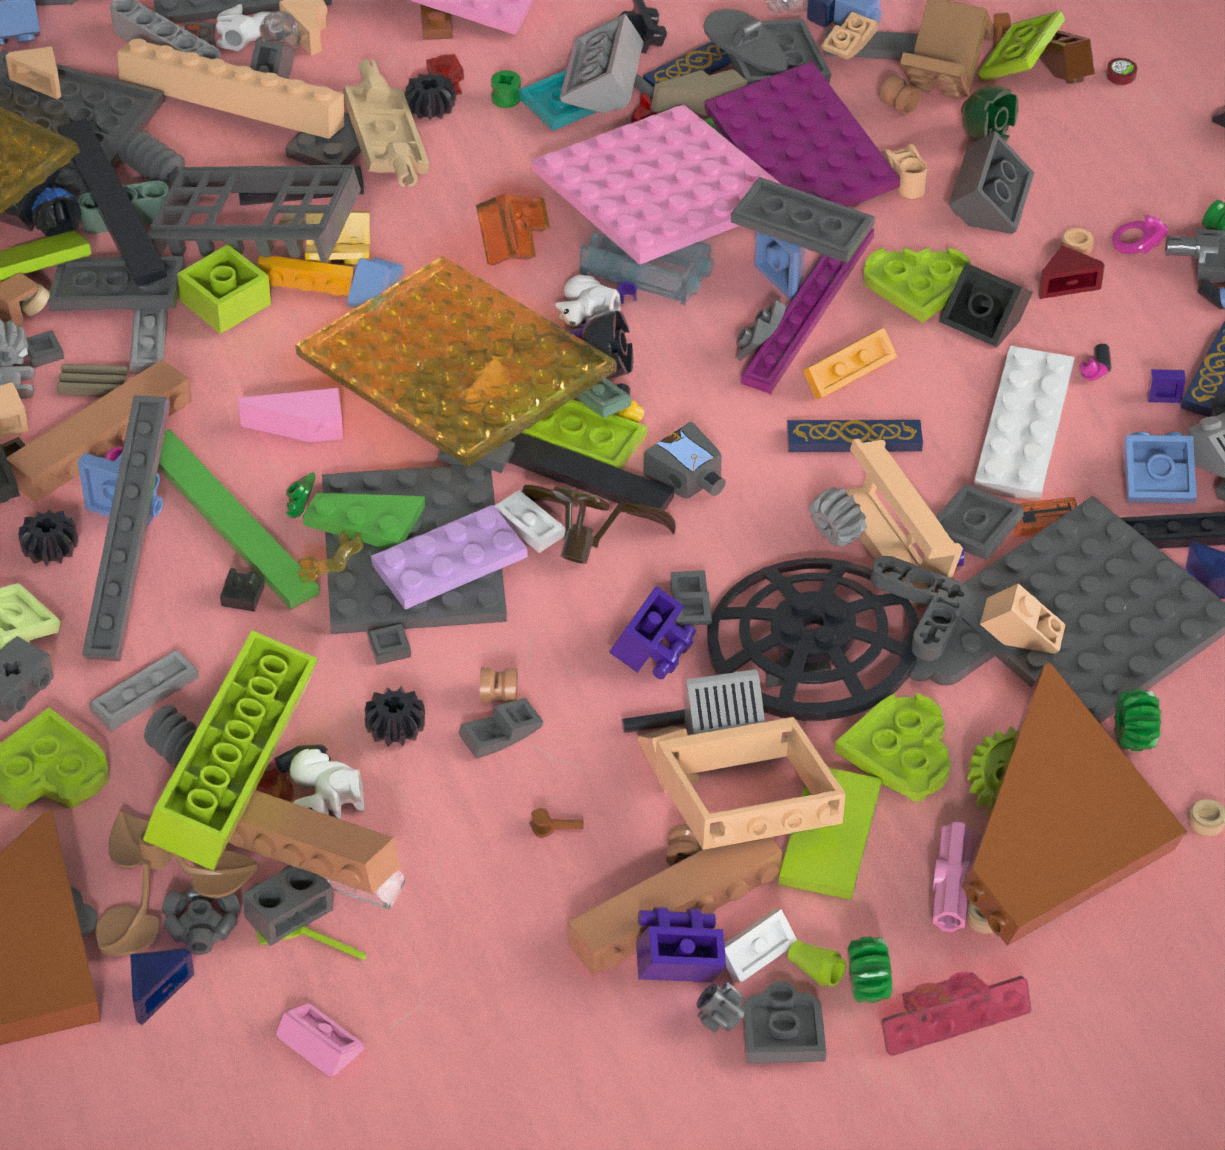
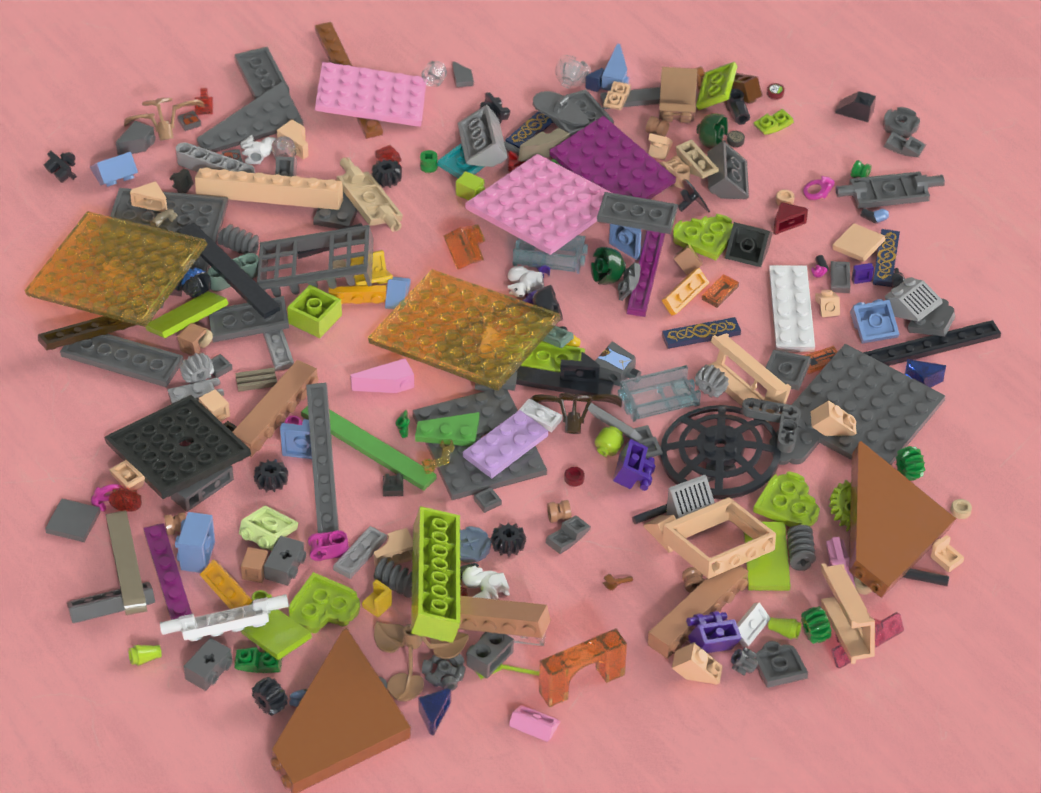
camera: 15 degrees left, 0 degrees up
(43, 104) = (161, 217): none -> dark tan arm
(94, 667) = (330, 545): none -> dark pink piece
(103, 56) = (182, 181): none -> pearl dark grey tile
(138, 777) = (378, 600): none -> yellow panel
(197, 692) = (397, 549): none -> light nougat arch
(331, 713) = (474, 544): none -> sand blue tile
(384, 950) = (557, 670): none -> clear orange arch
(550, 633) = (574, 476): none -> dark red tile
(553, 134) = (469, 186): none -> lime brick
(621, 460) = (584, 370): none -> black slope
(627, 585) = (609, 441): none -> lime head
(635, 997) = (696, 665): none -> light nougat slope
(650, 560) = (612, 421): none -> light grey tile
(734, 301) = (608, 266): none -> dark green cylinder
(742, 520) = (658, 393): none -> clear light blue door
(873, 312) = (688, 259): none -> nougat panel
(893, 125) = (659, 146): none -> light nougat slope
(893, 828) = (801, 547): none -> dark grey piece
(910, 216) = (690, 195): none -> black shield
(912, 373) = (720, 291): none -> clear orange tile
(924, 959) = (848, 614): none -> light nougat piece
(940, 153) = (695, 158): none -> tan slope
(1026, 135) = (735, 139): none -> pearl dark grey tile
(1046, 84) = (737, 107): none -> black piece
(1089, 425) = (828, 302): none -> light nougat bracket
(1094, 122) = (774, 123): none -> lime slope
(1105, 925) = (927, 577): none -> black piece
(1127, 386) = (840, 276): none -> flat silver tile
(1150, 891) = (945, 554): none -> light nougat bracket
(1177, 334) = (858, 242): none -> light nougat tile

